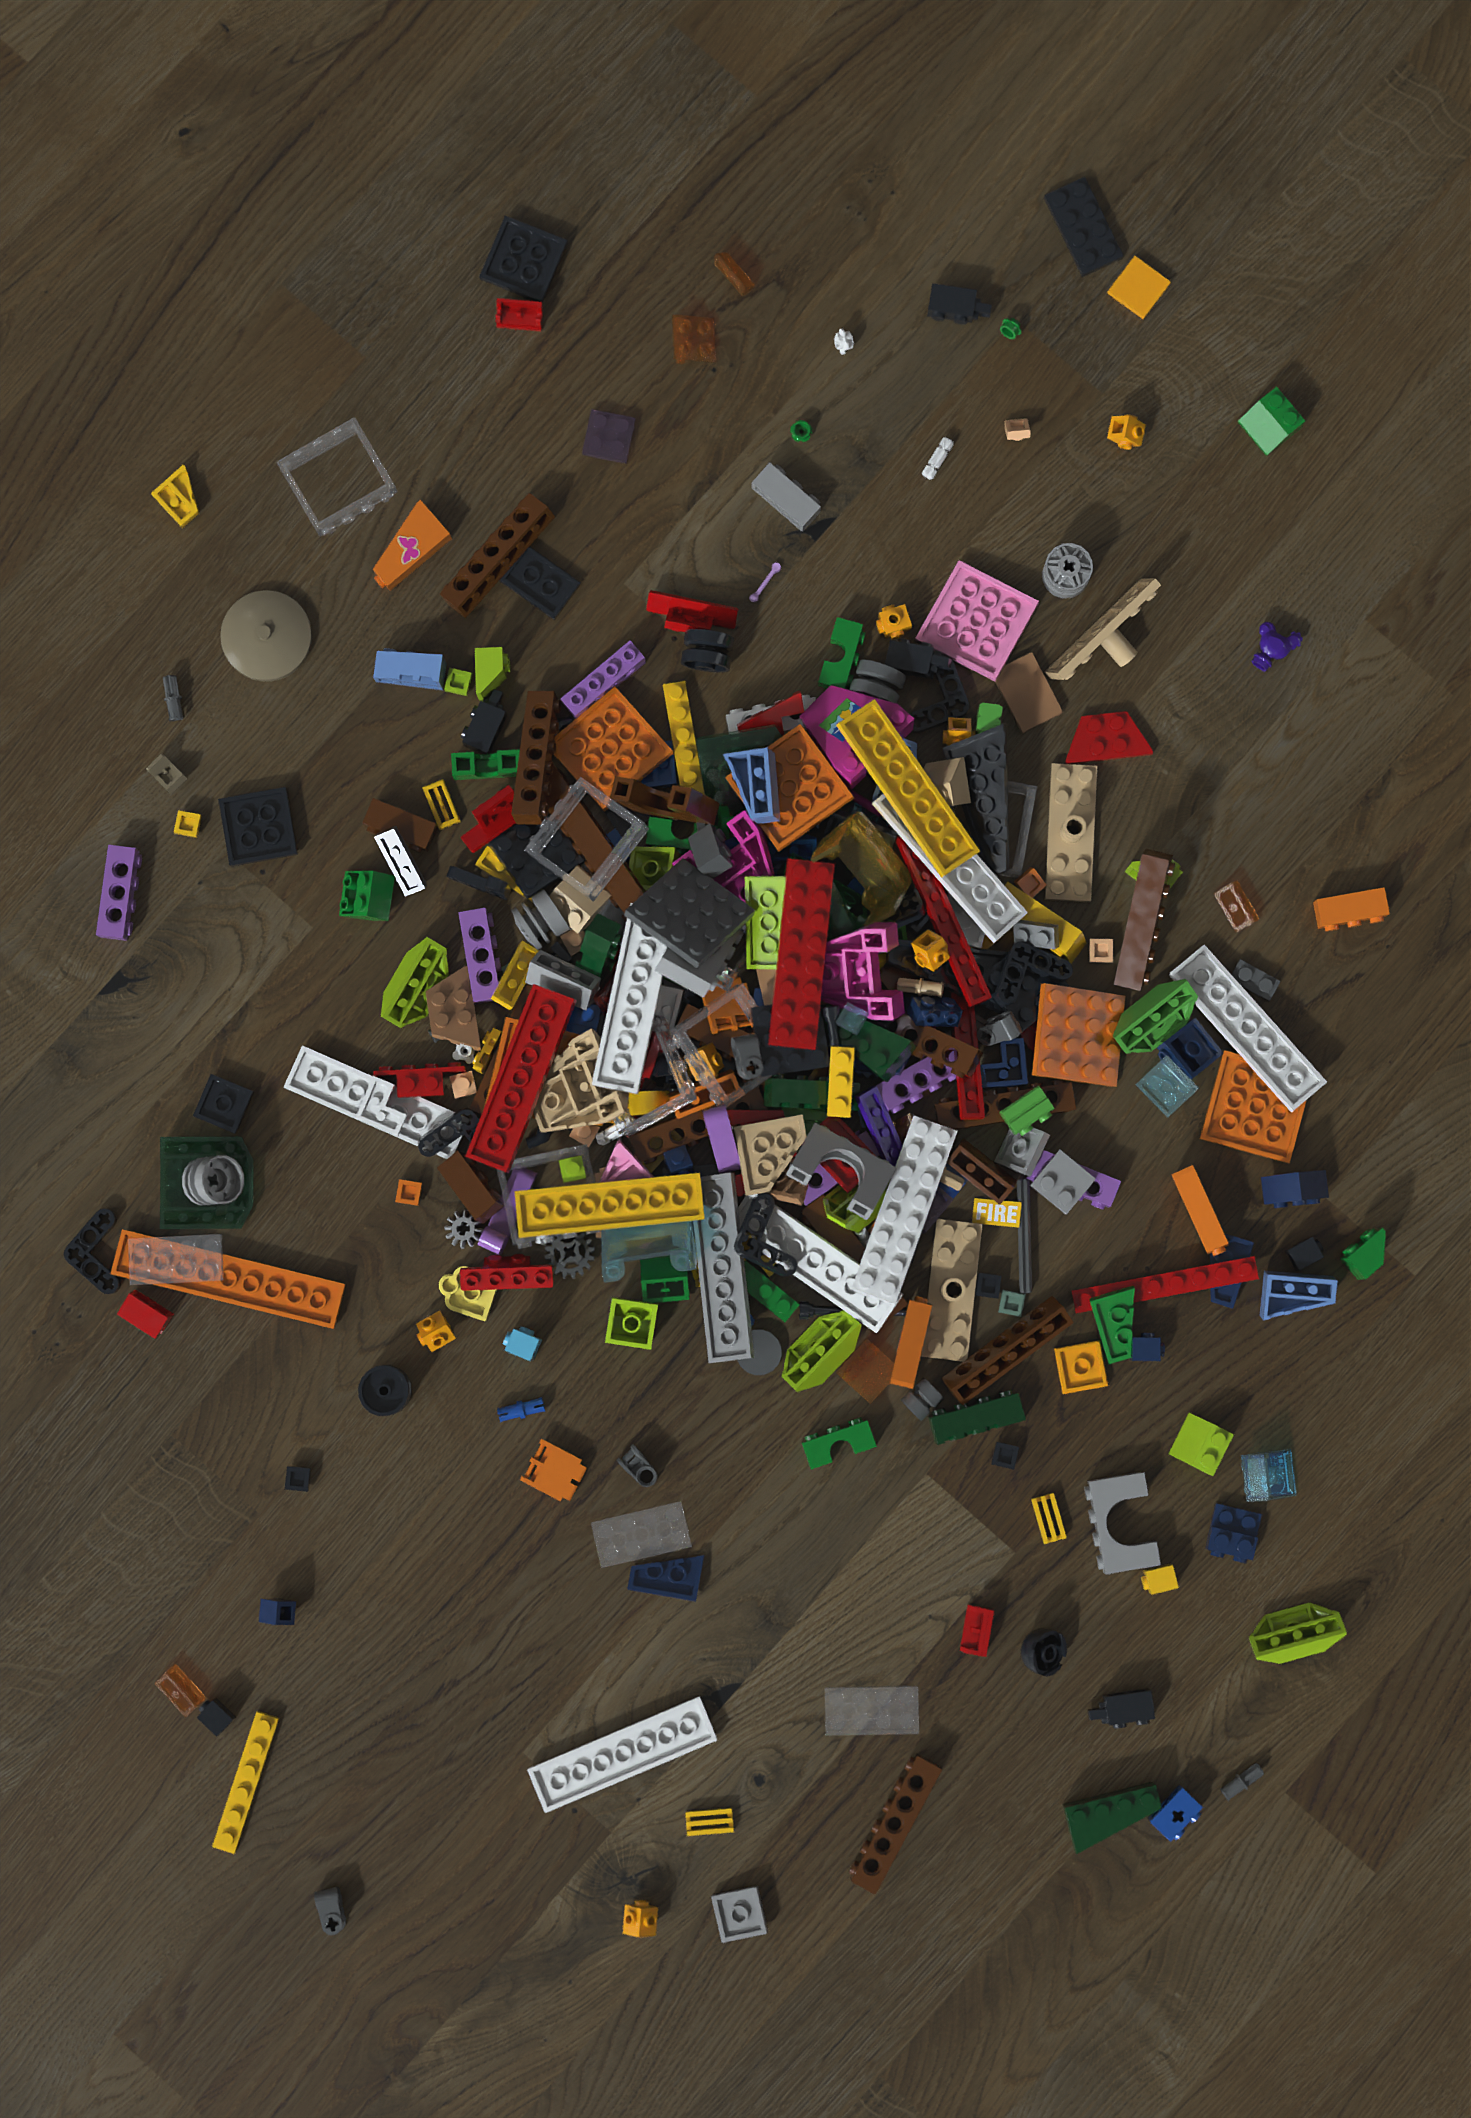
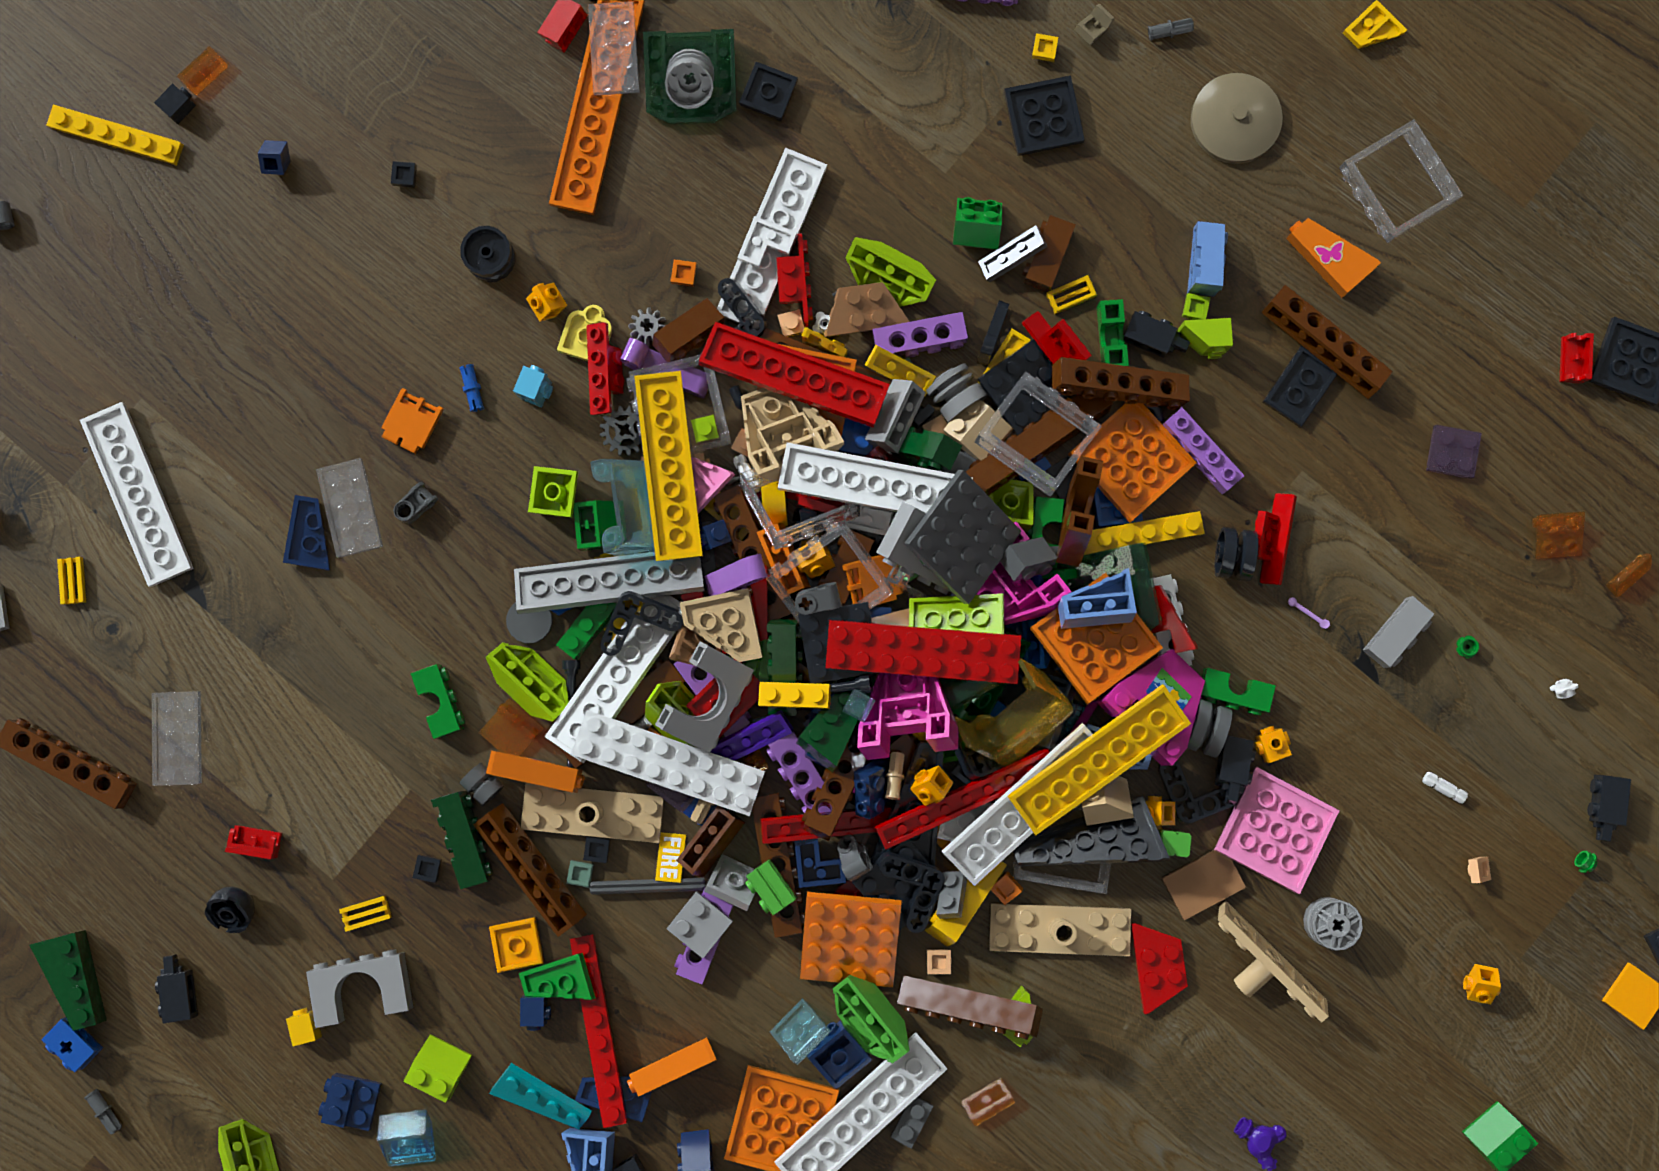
camera: 90 degrees right, 0 degrees up
(1228, 1345) = (533, 1094): none -> teal wing

